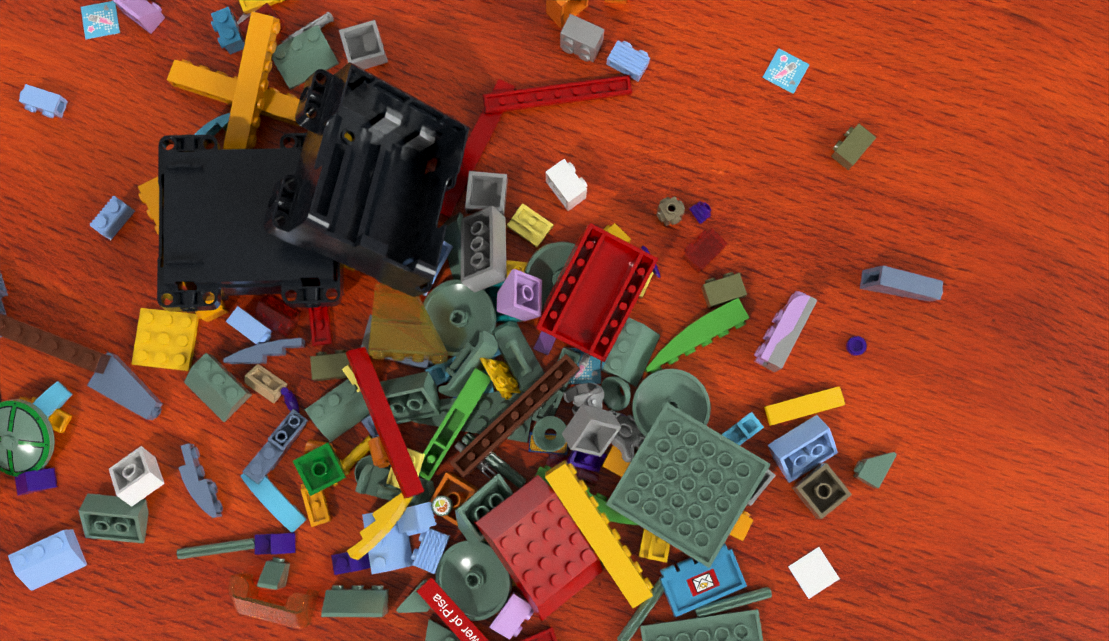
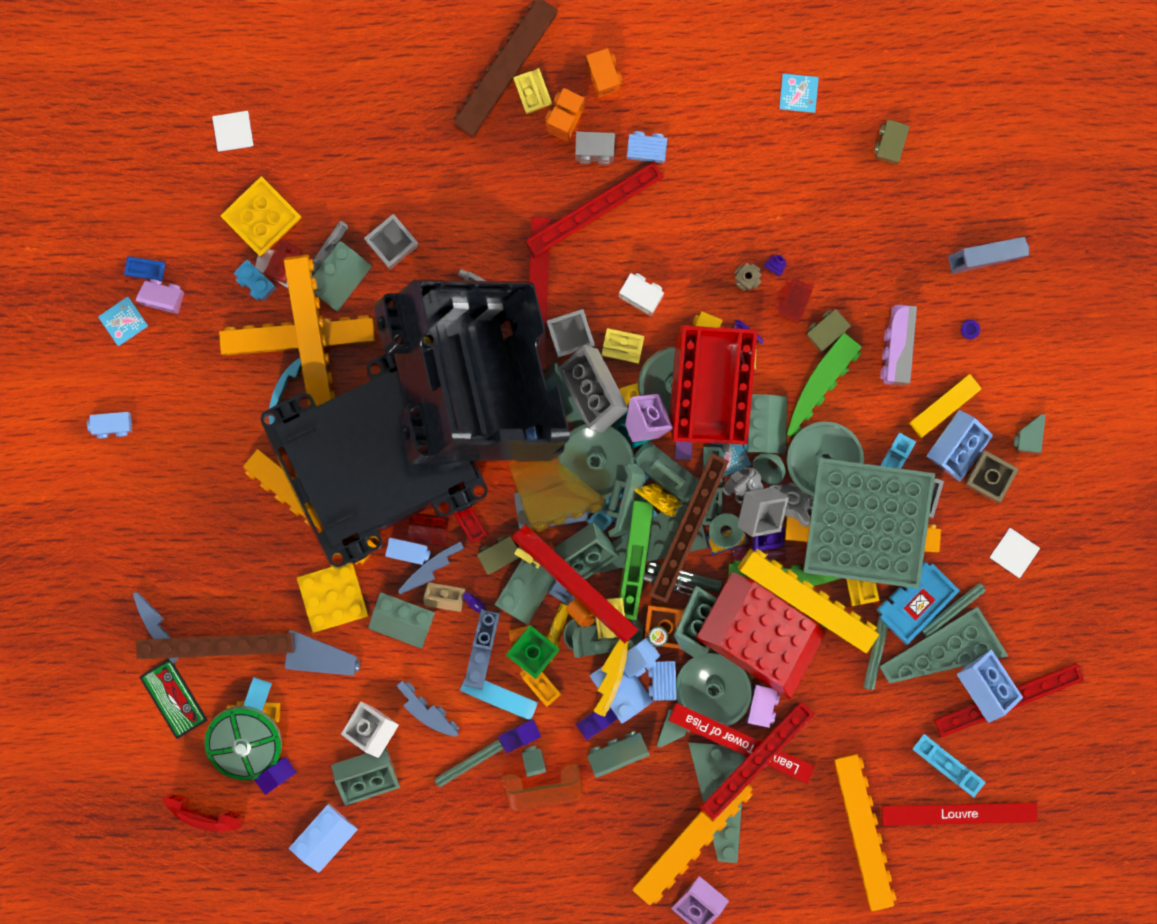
camera: 25 degrees left, 5 degrees up
(112, 217) = (231, 505): light blue brick -> none

